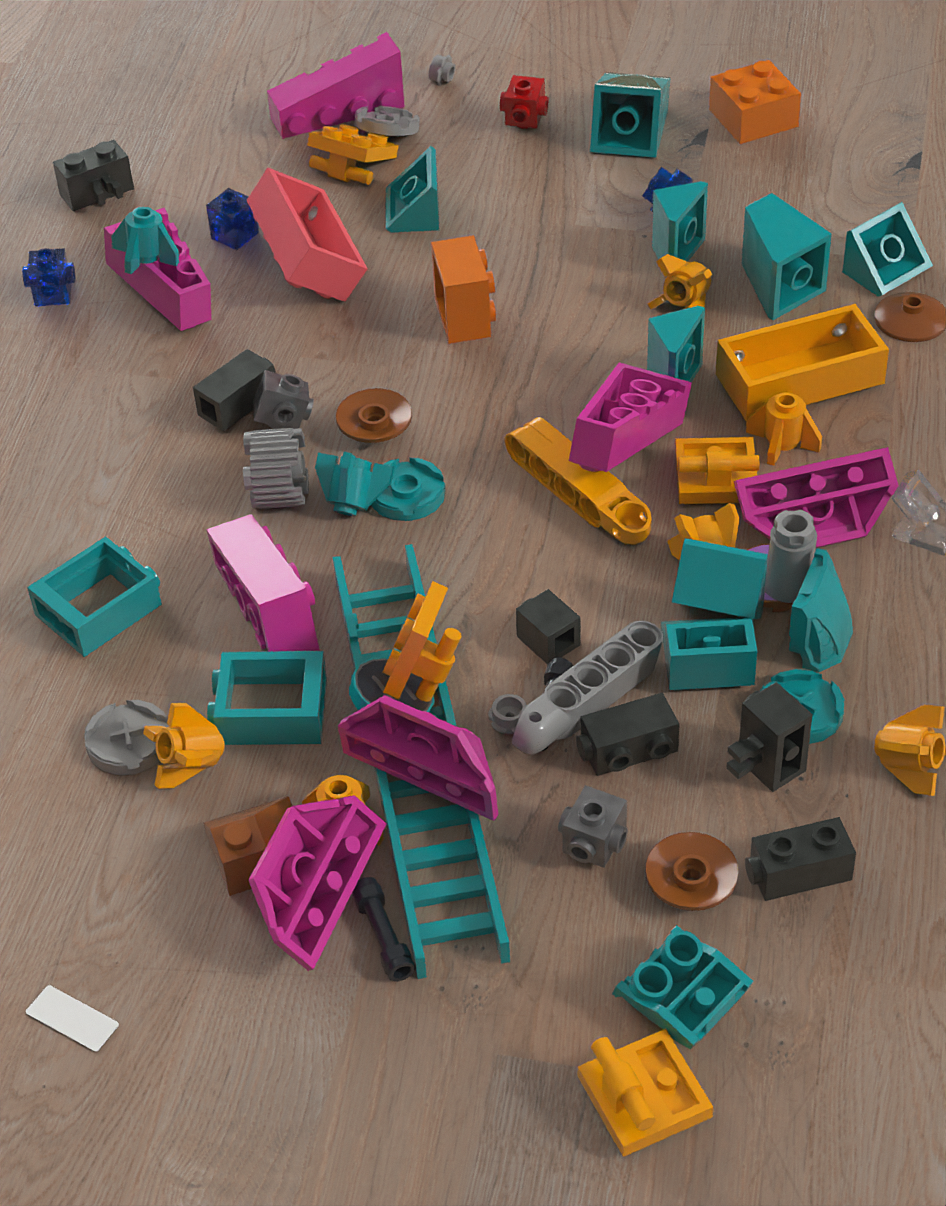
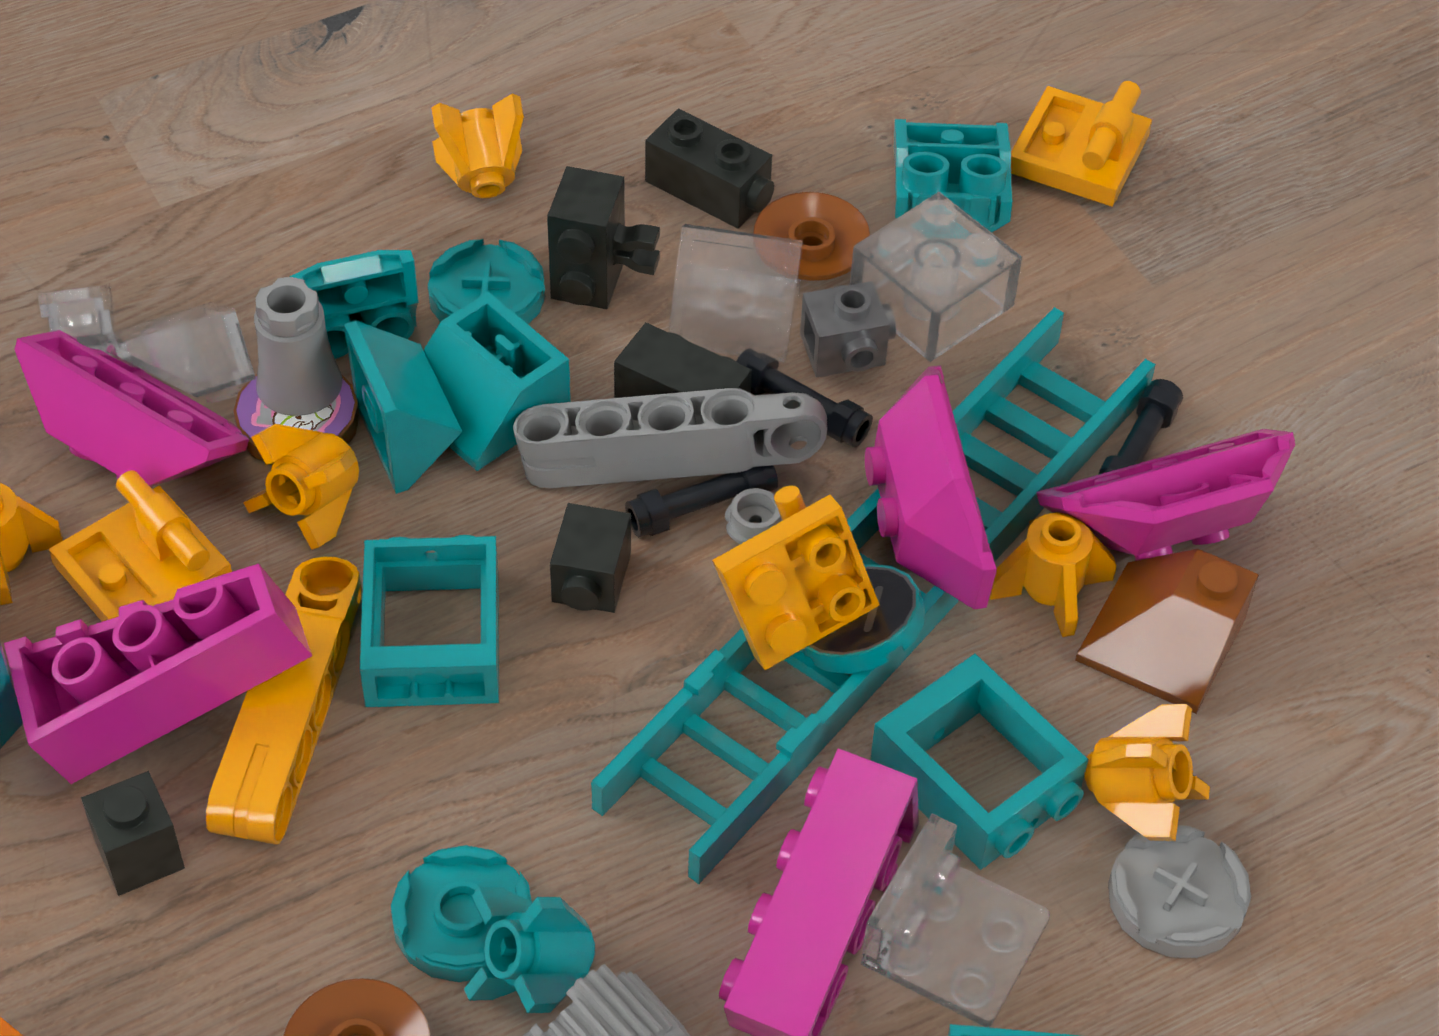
camera: 135 degrees left, 5 degrees up
(200, 632) = (951, 929): none -> clear bracket
(536, 797) = (845, 420): none -> black bar
(552, 394) = (133, 833): none -> pearl dark grey brick
(564, 513) = (429, 672): none -> teal window
(597, 907) = (938, 274): none -> clear brick
(678, 795) = (735, 290): none -> clear bracket
(859, 535) = (190, 350): none -> clear slope

